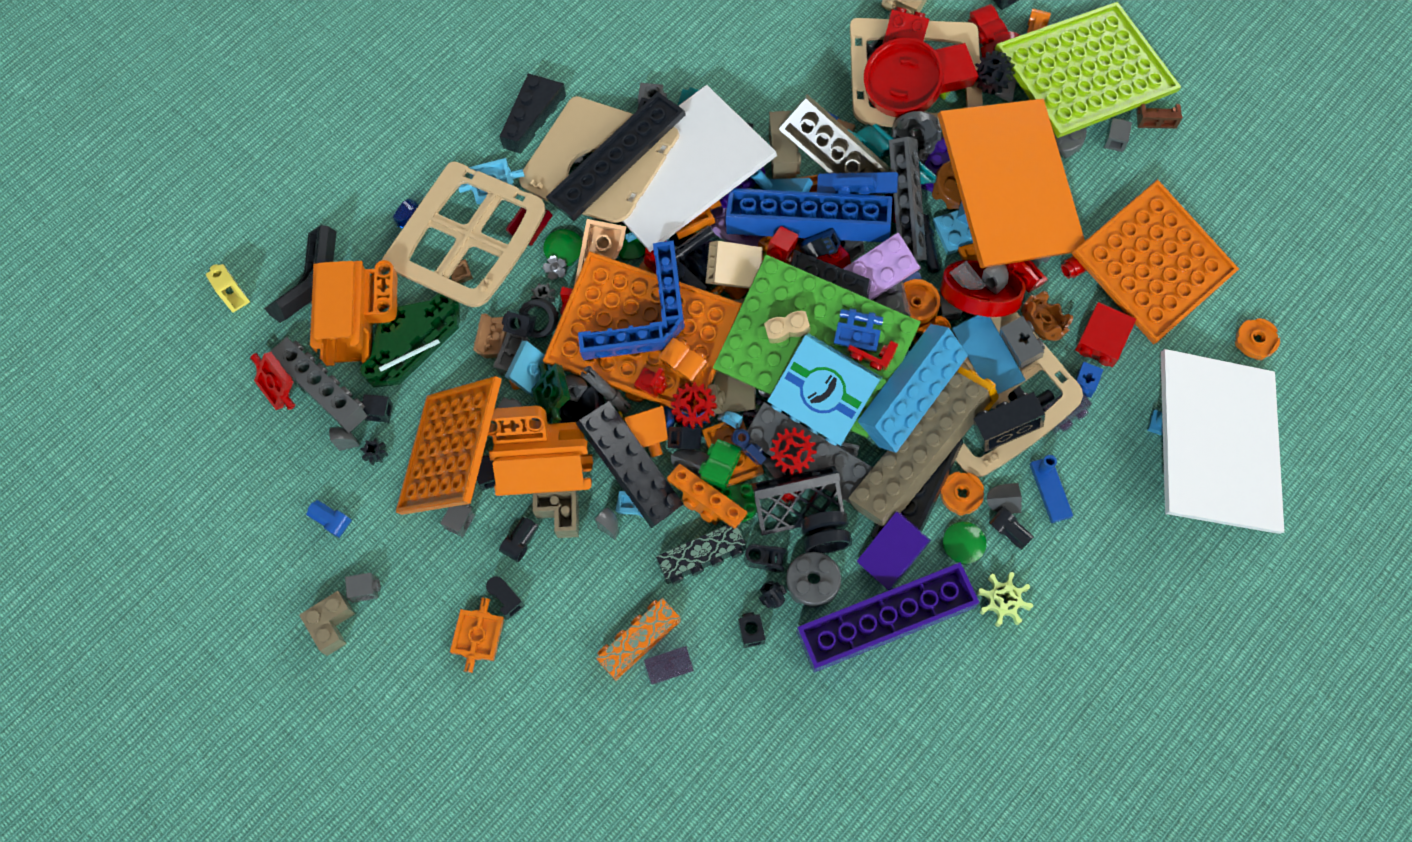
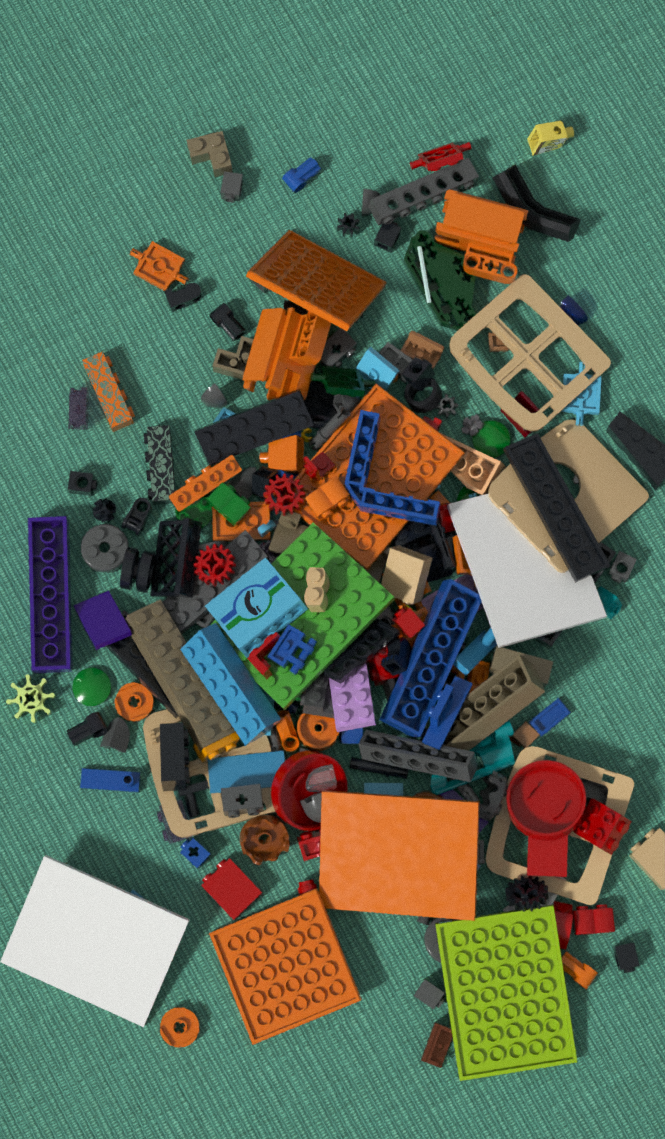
camera: 105 degrees right, 10 degrees up
(754, 451) = (228, 533): dark blue plate -> none

